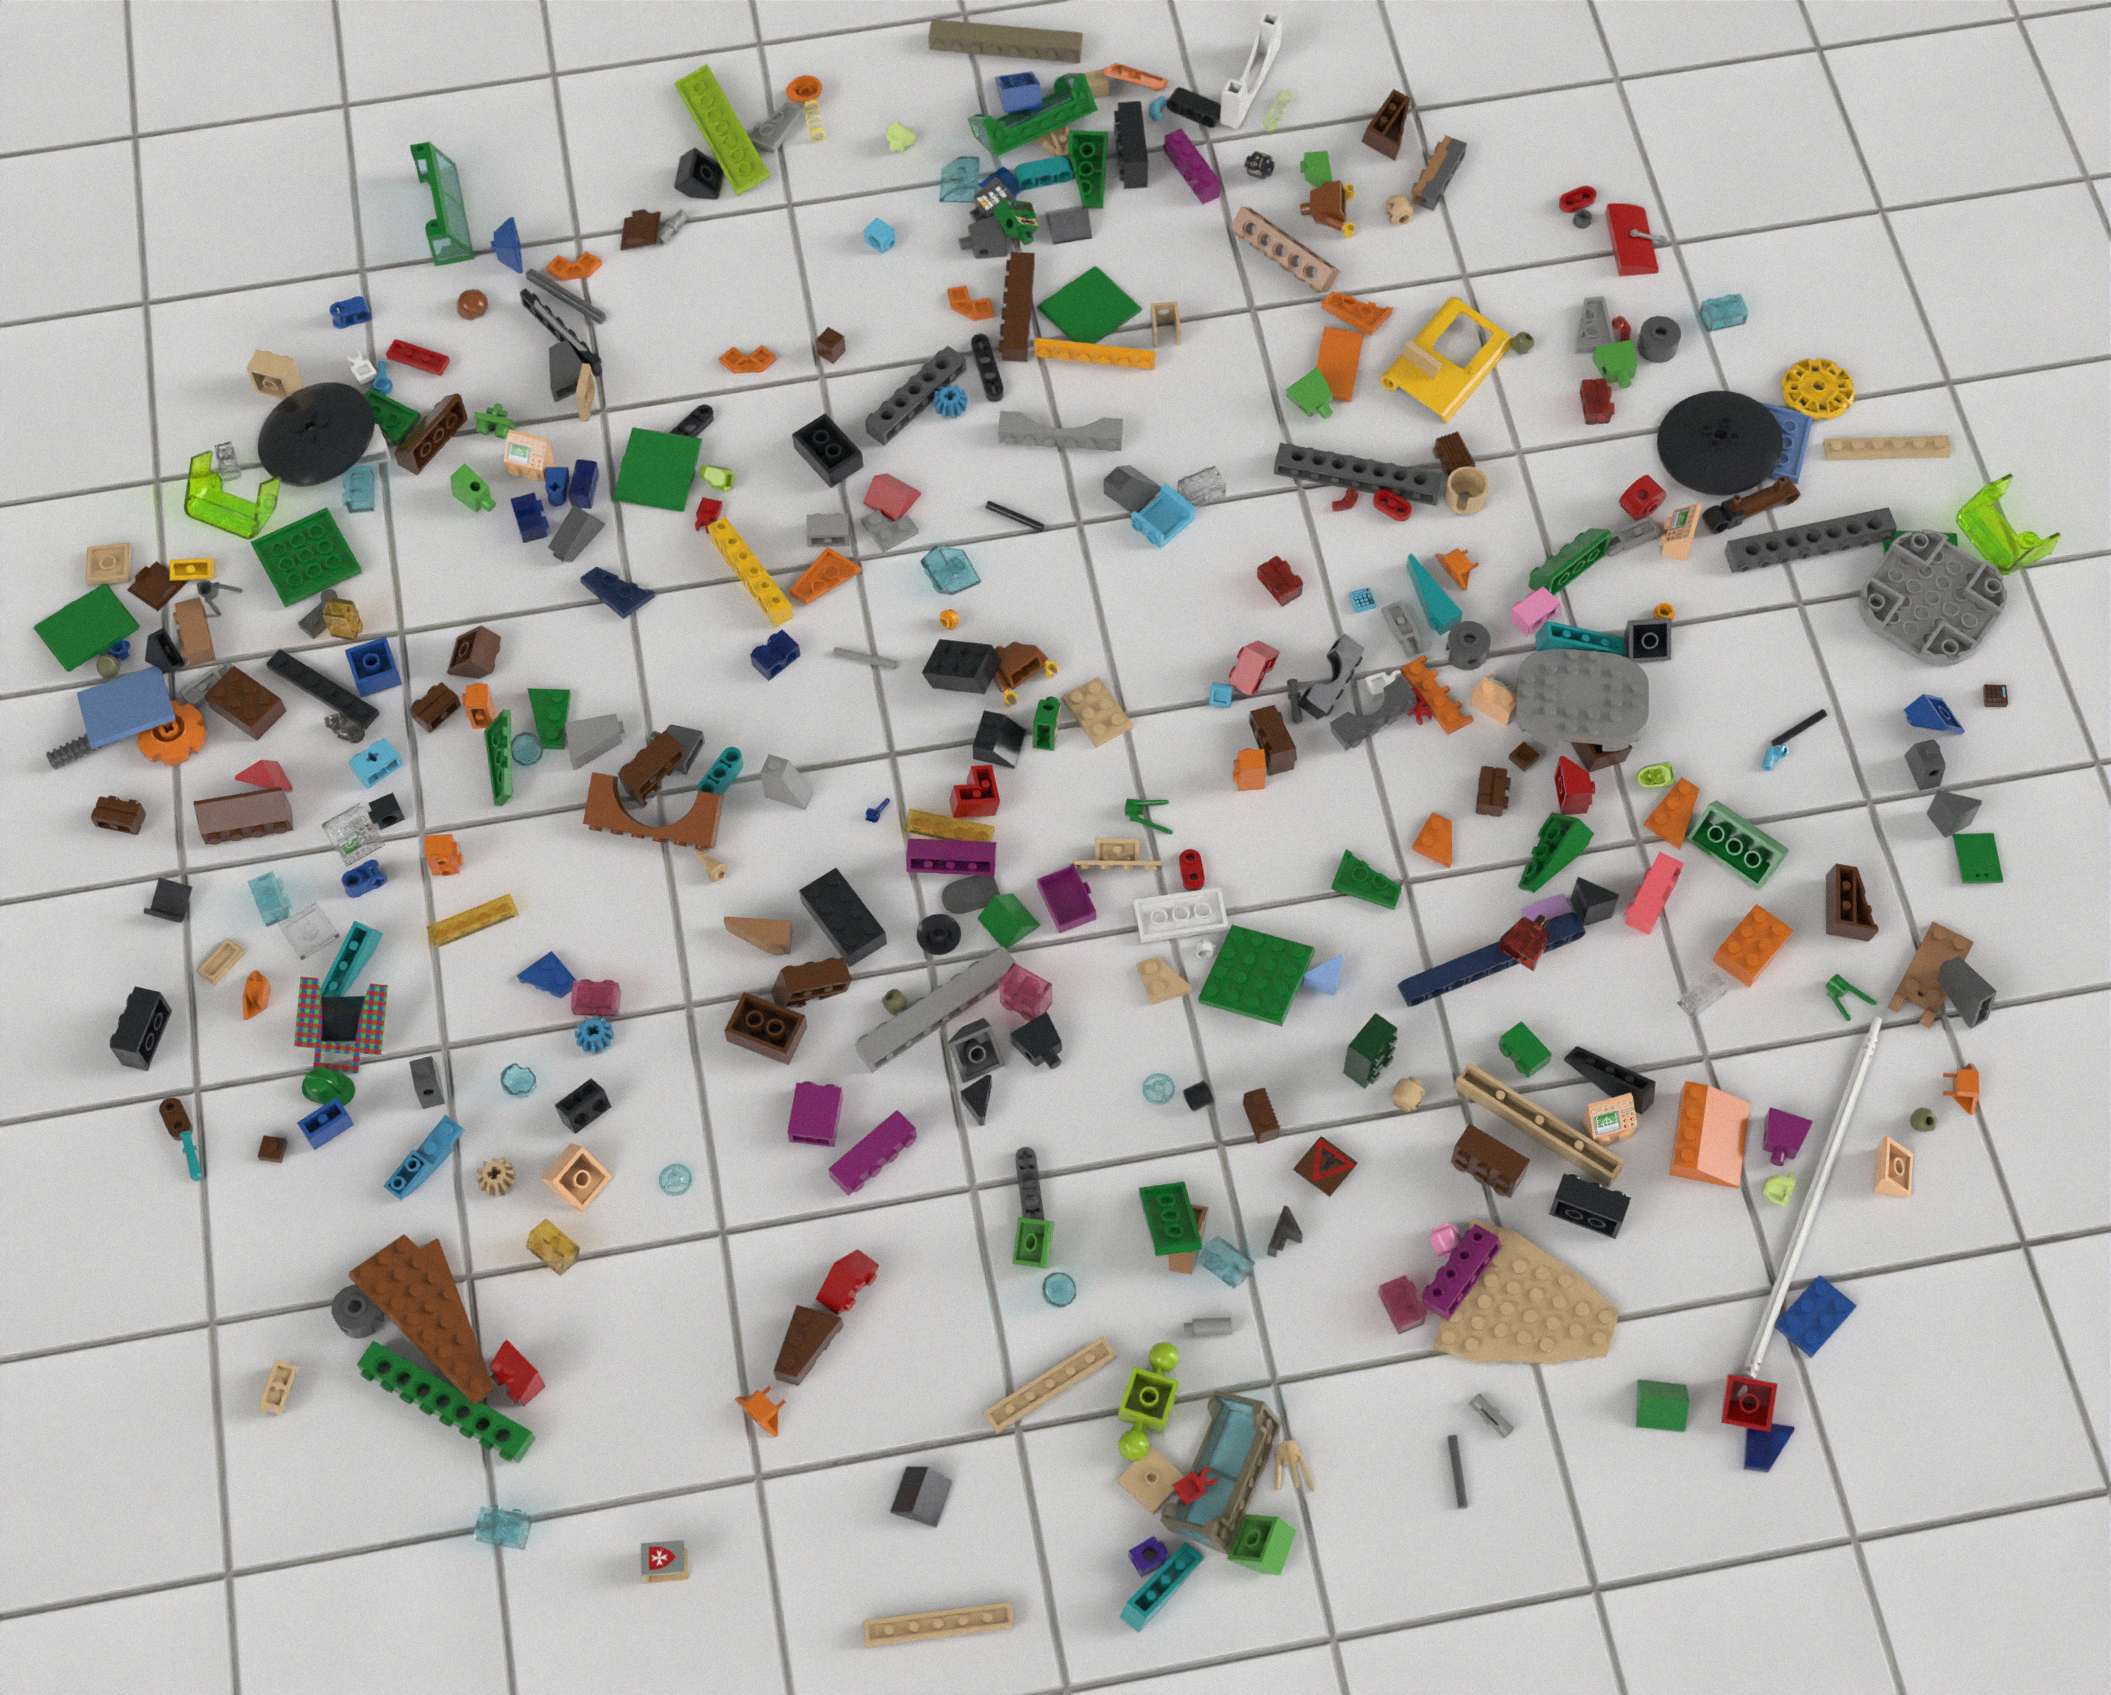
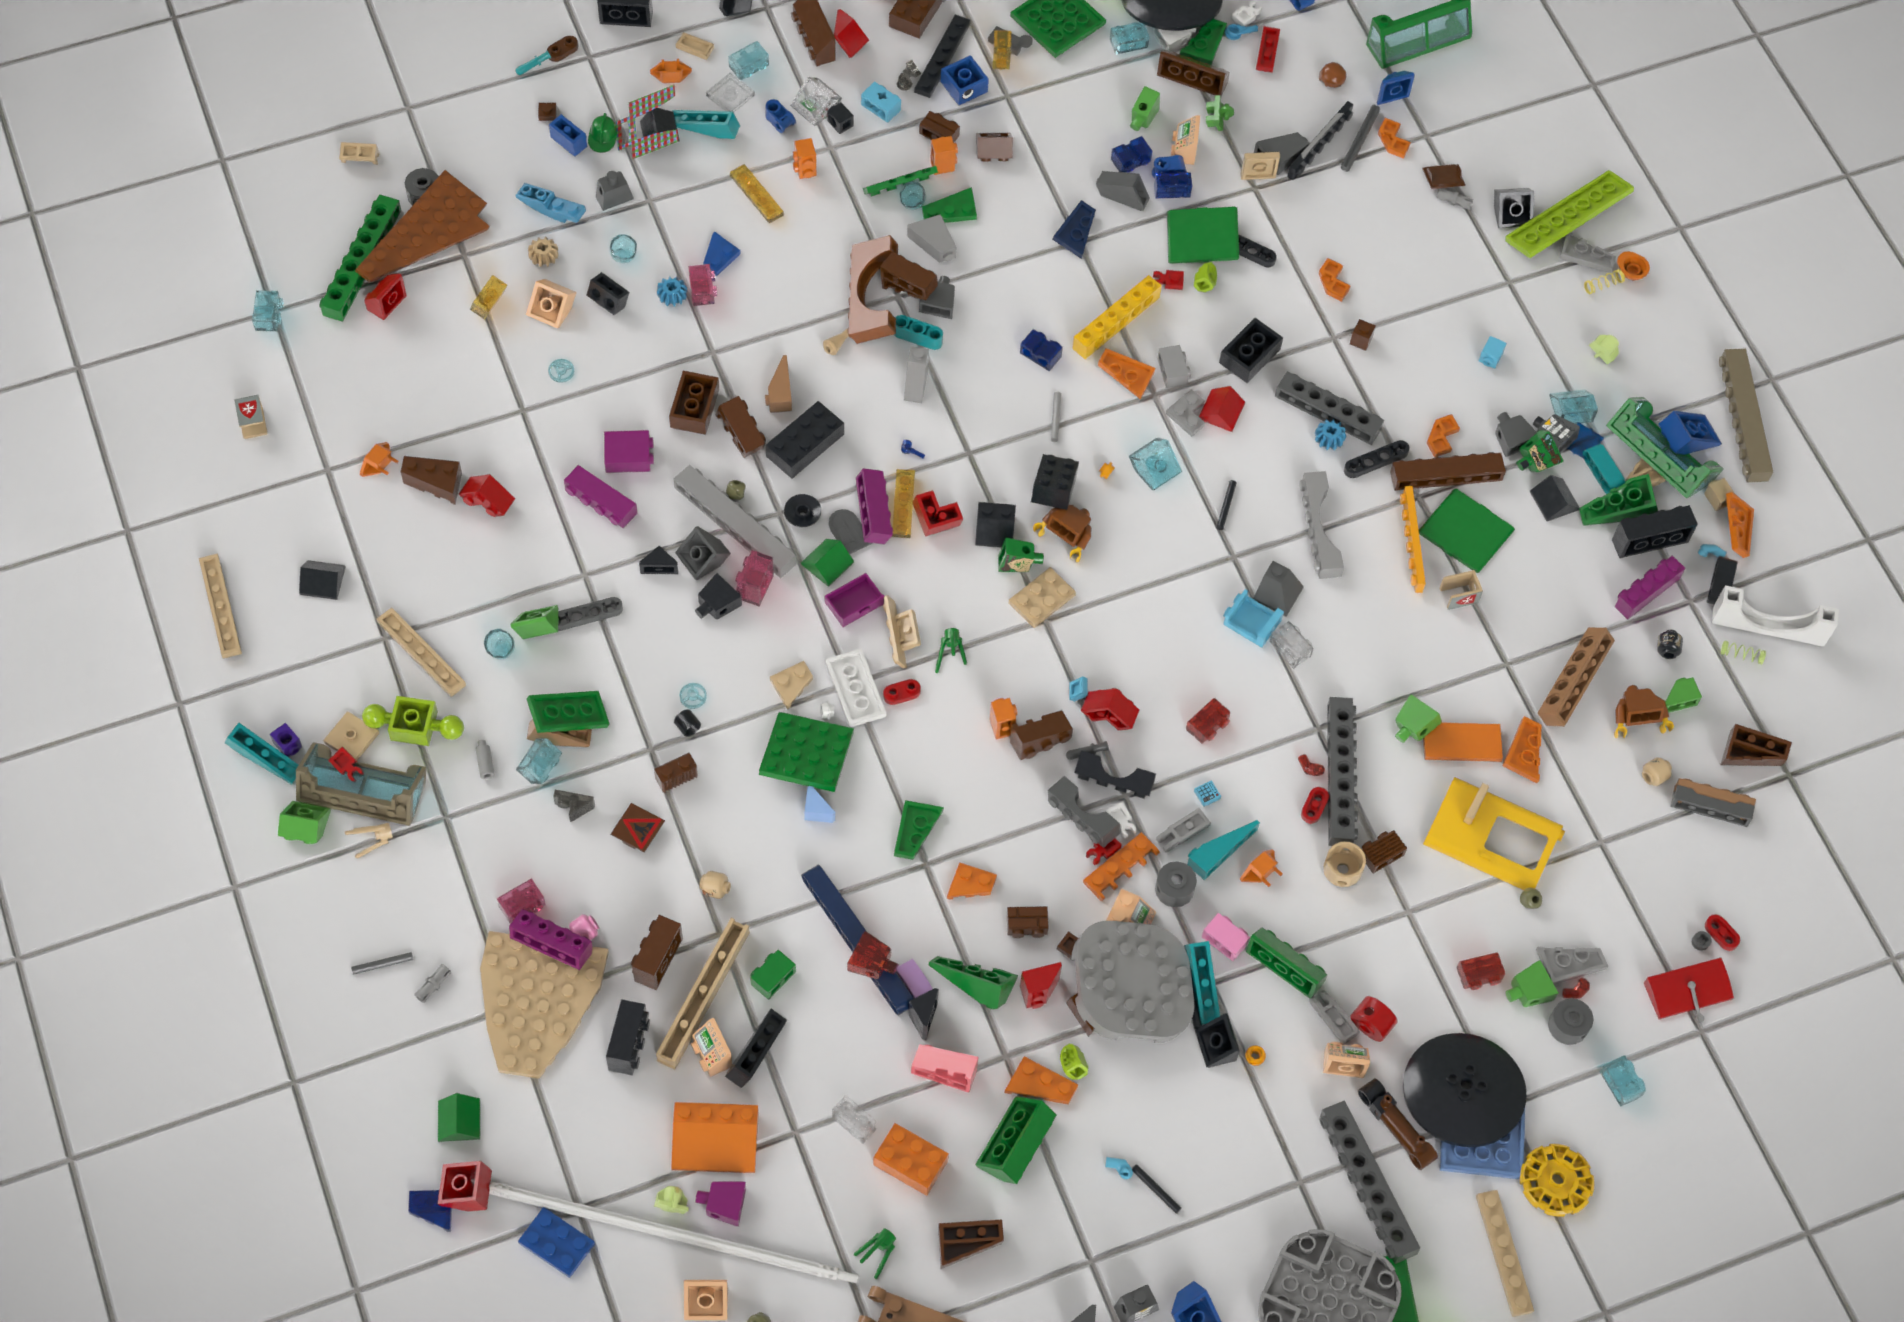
camera: 75 degrees right, 0 degrees up
(1370, 1051) = (741, 842): dark green brick -> none

